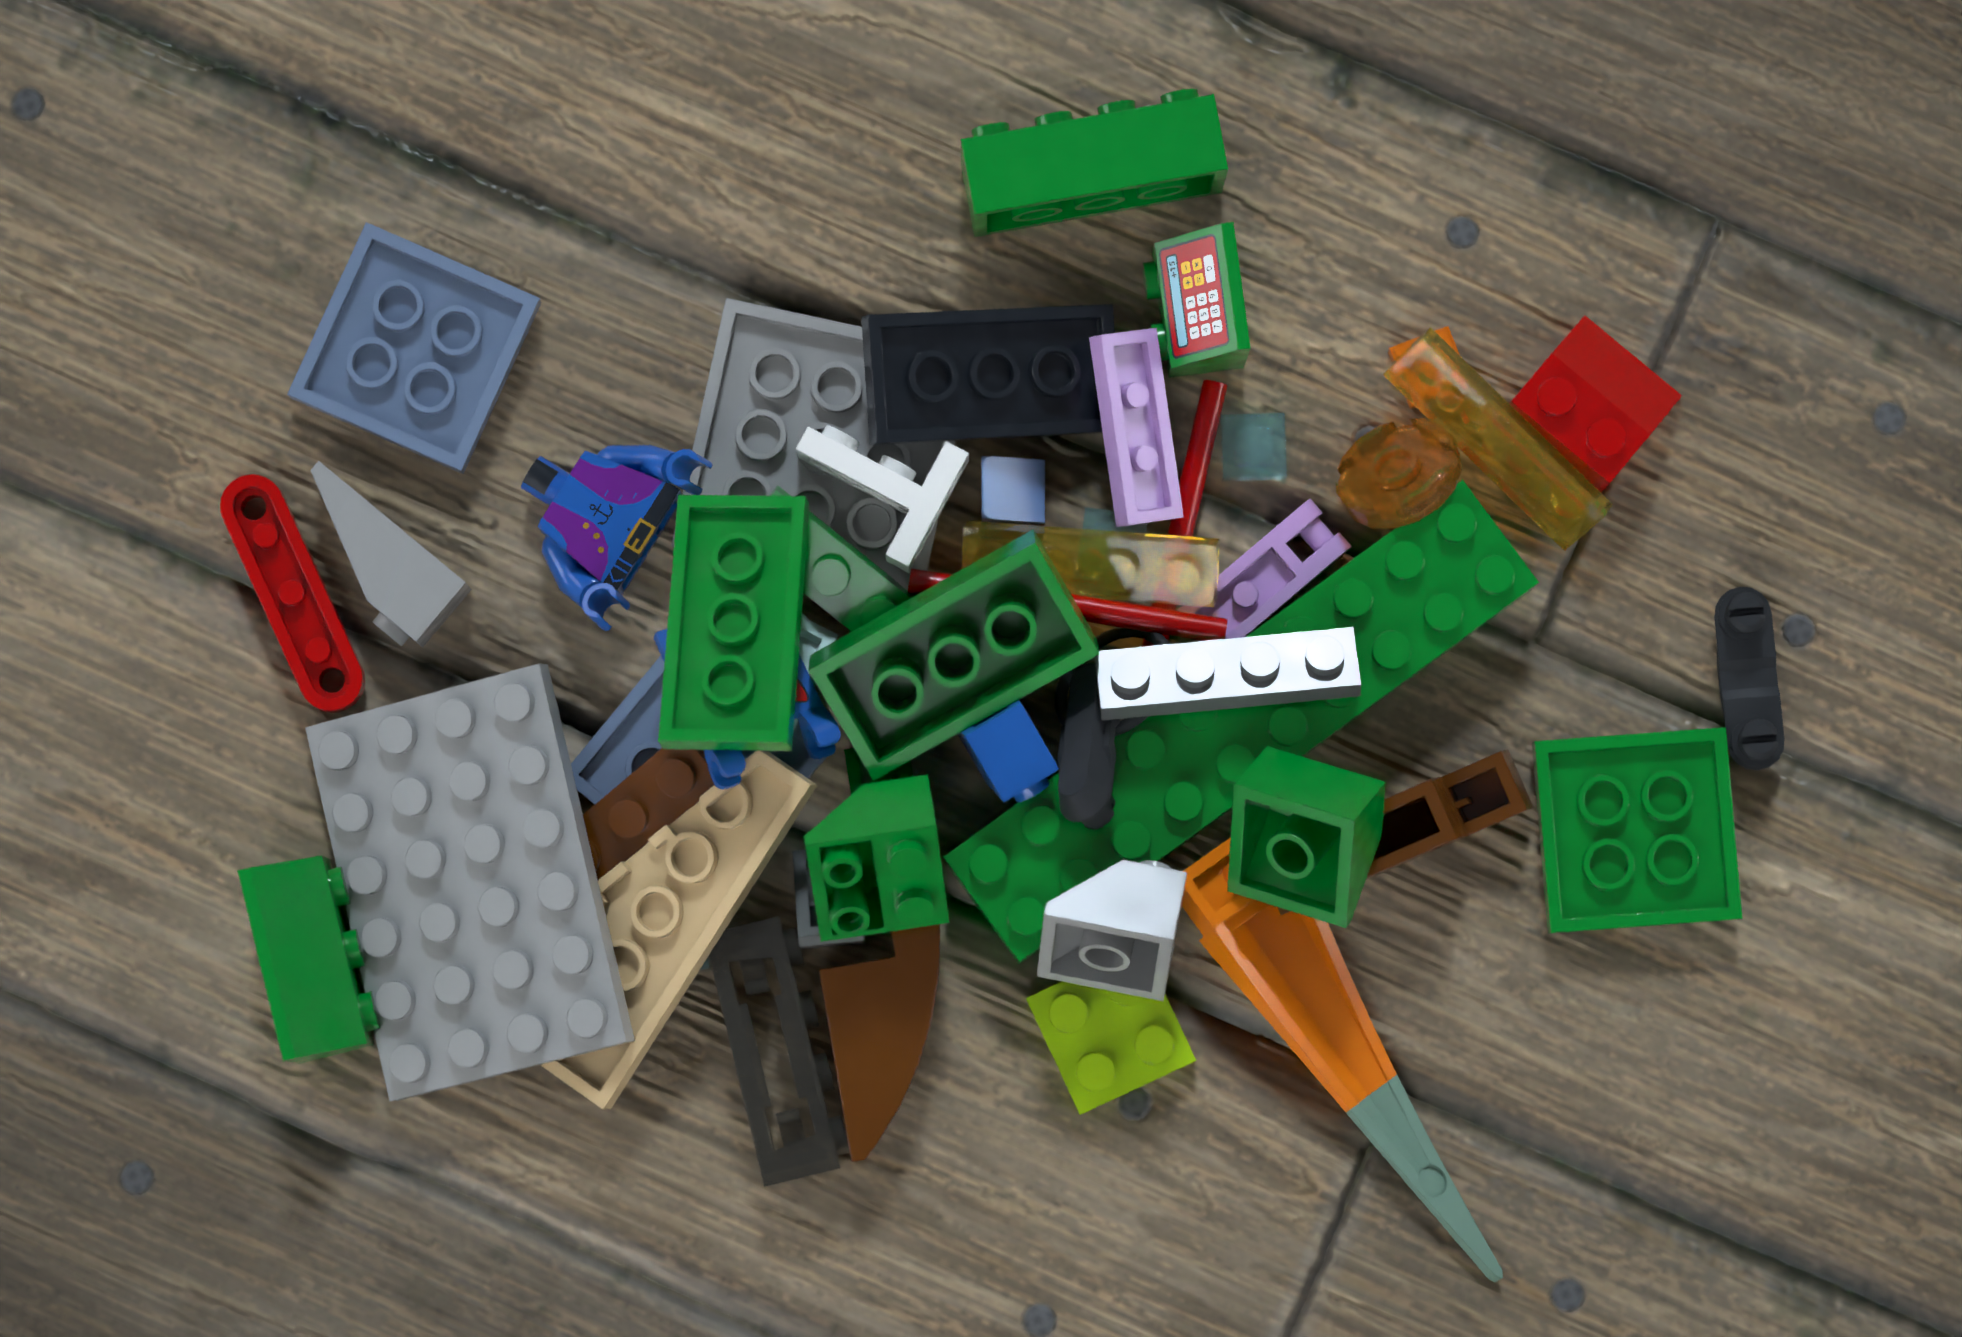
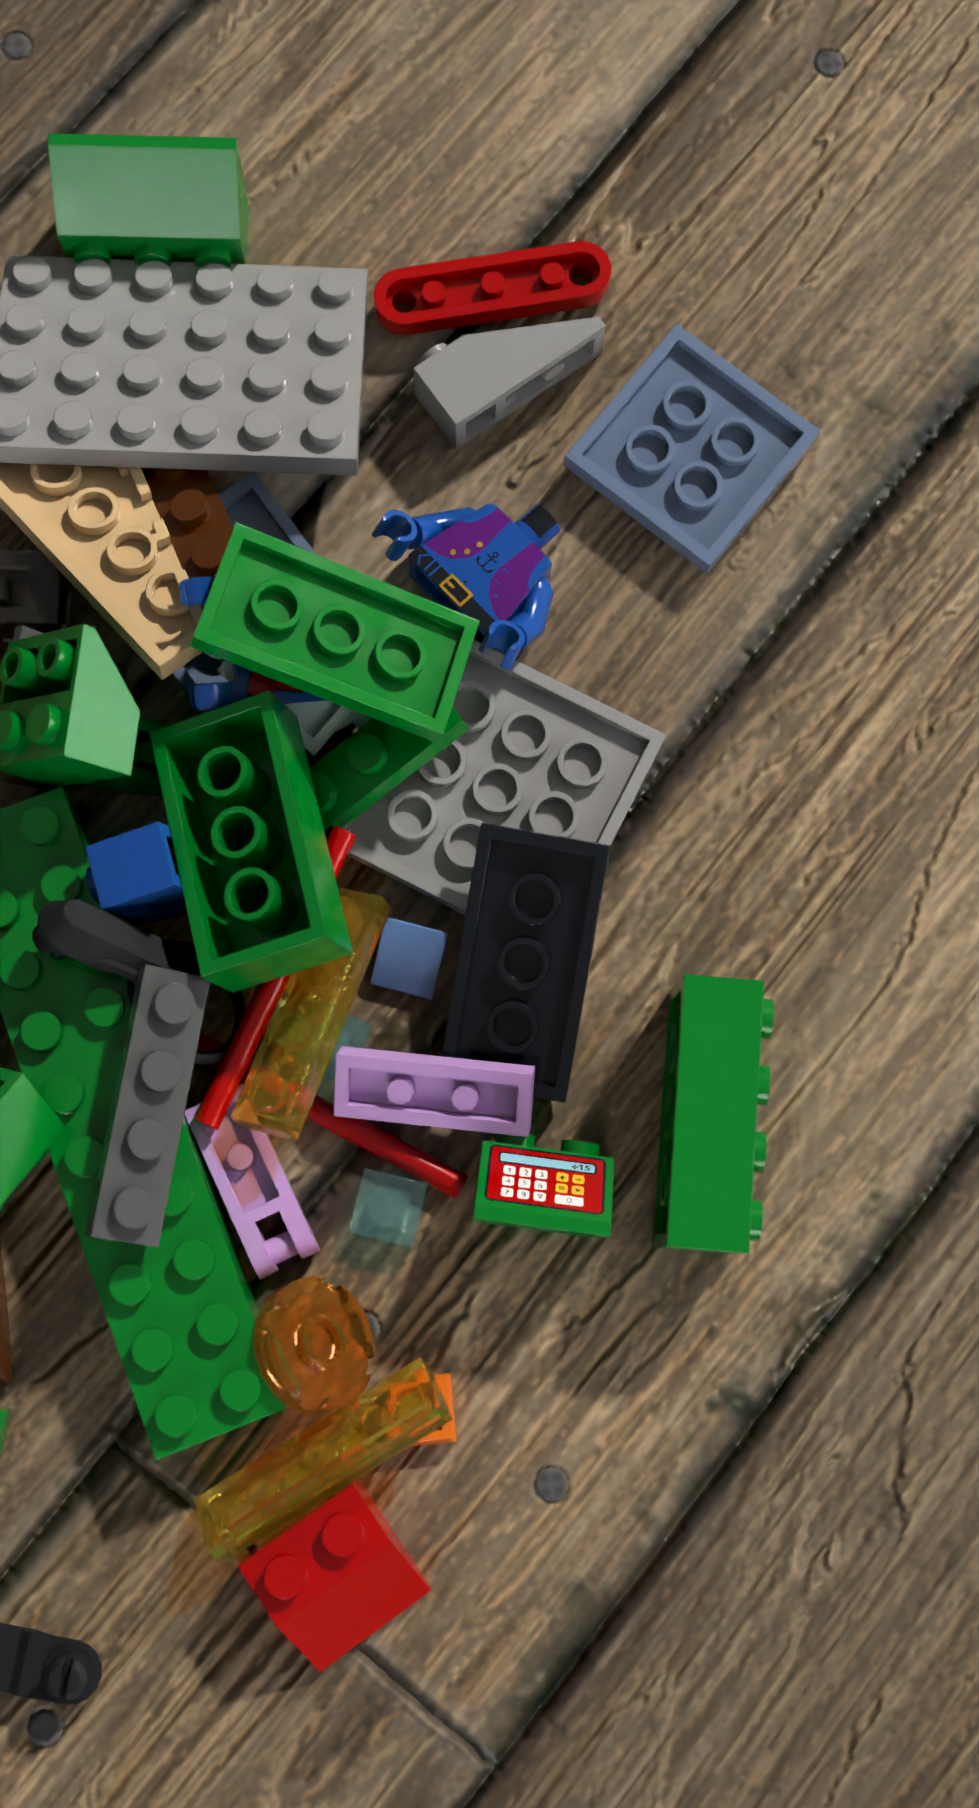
camera: 100 degrees right, 5 degrees down
(890, 483) = (439, 833): white bracket -> none

